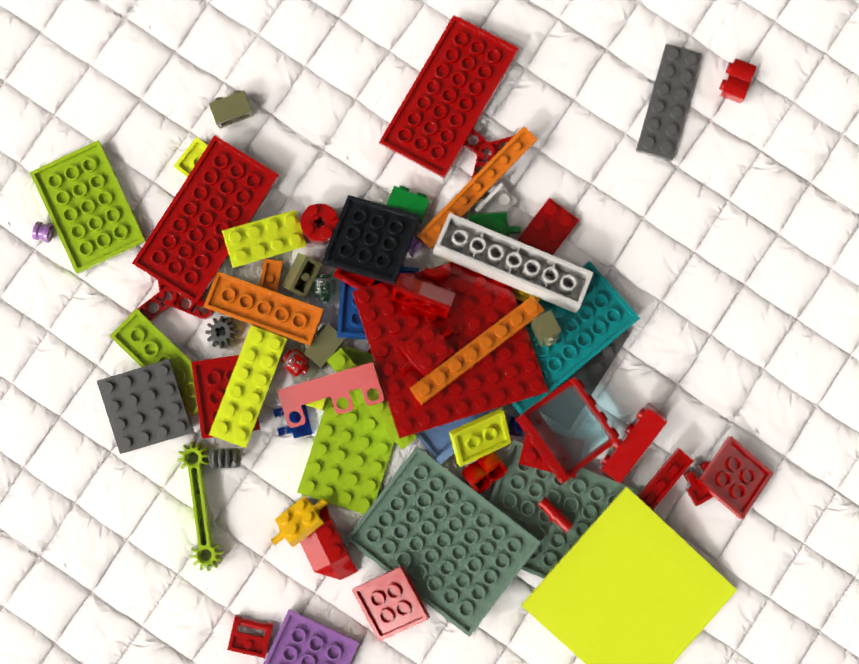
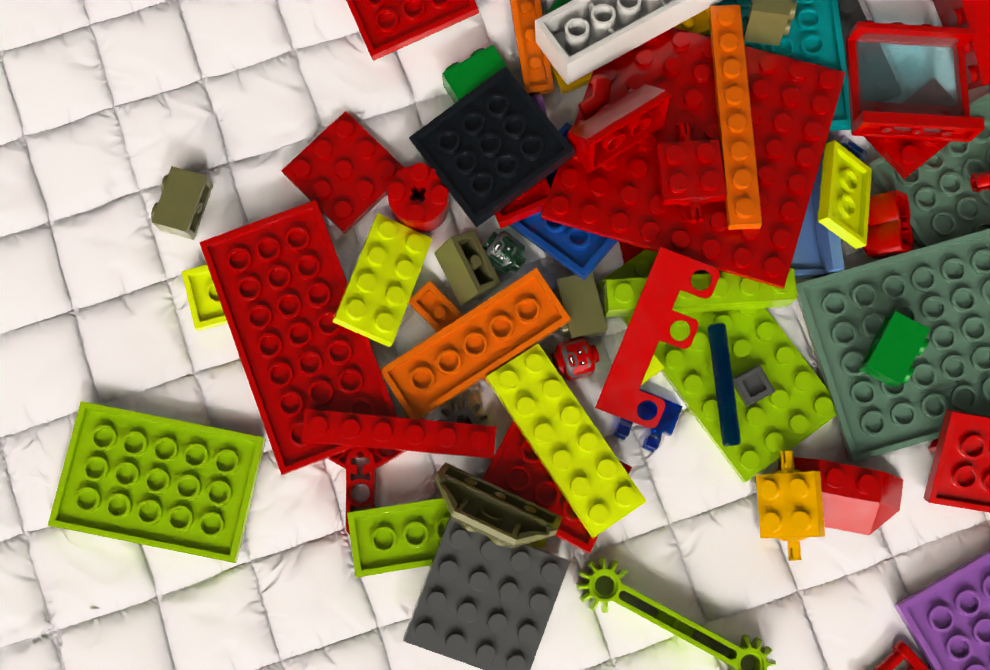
camera: 60 degrees left, 5 degrees down
(43, 231) = (142, 567): medium lavender wheel -> none
(185, 375) = (492, 510): none -> olive wedge
(191, 304) = (399, 434): none -> red plate
(224, 458) = (636, 542): dark grey gear -> none
(309, 175) = (343, 172): none -> red plate
(335, 446) = (724, 385): none -> axle
(346, 461) = (752, 385): none -> dark grey tile
(414, 518) = (895, 349): none -> green brick

